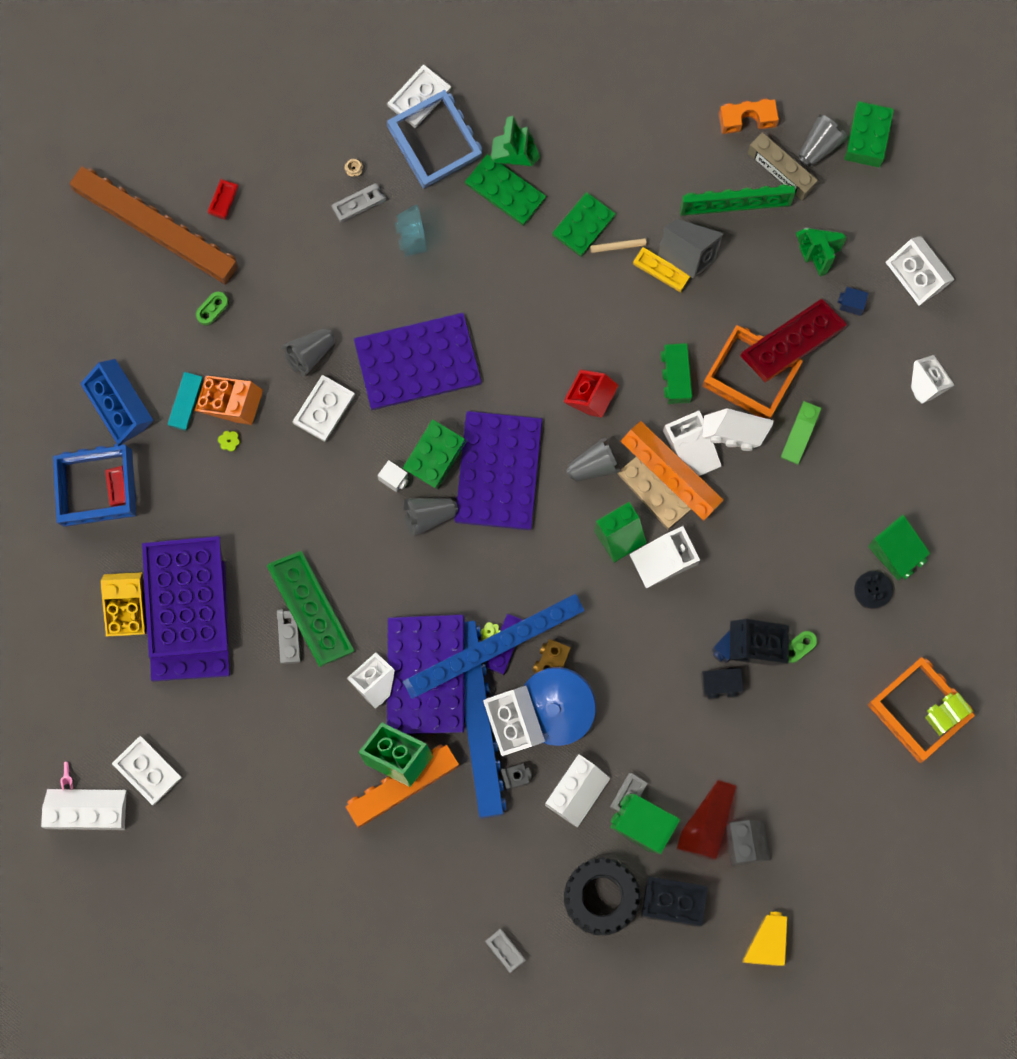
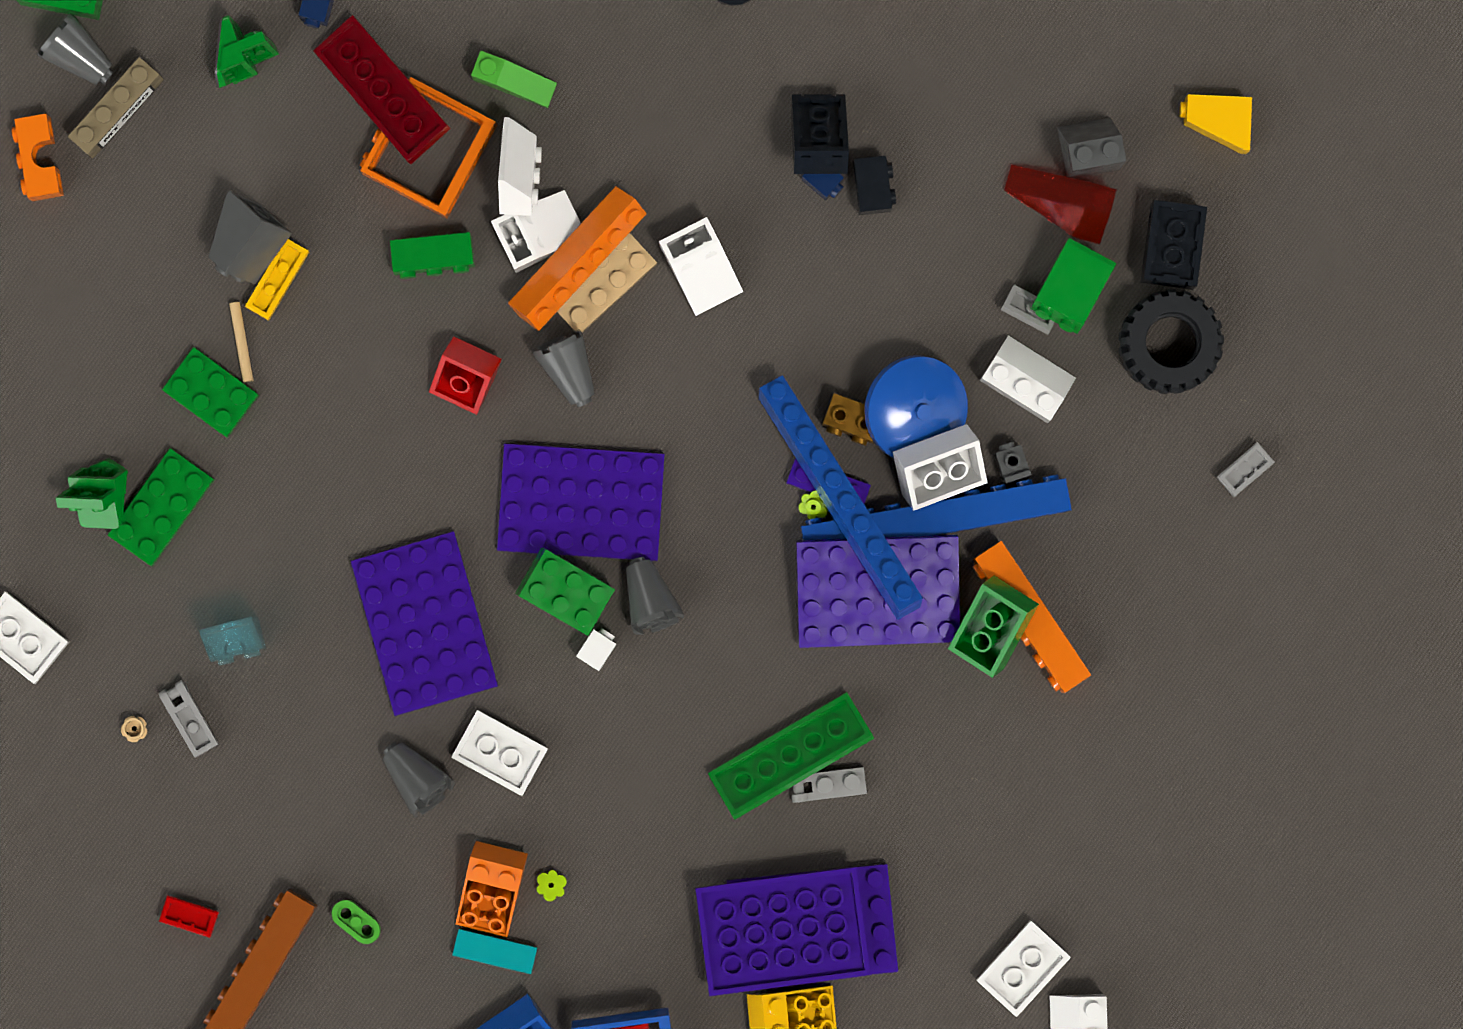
camera: 95 degrees left, 10 degrees up
(373, 680) = (886, 663): white slope -> none
(424, 180) = (113, 648): medium blue window -> none
(620, 532) = (669, 327): green slope -> none
(737, 200) = (172, 183): green plate -> none
(799, 647) = (820, 79): bright green plate -> none

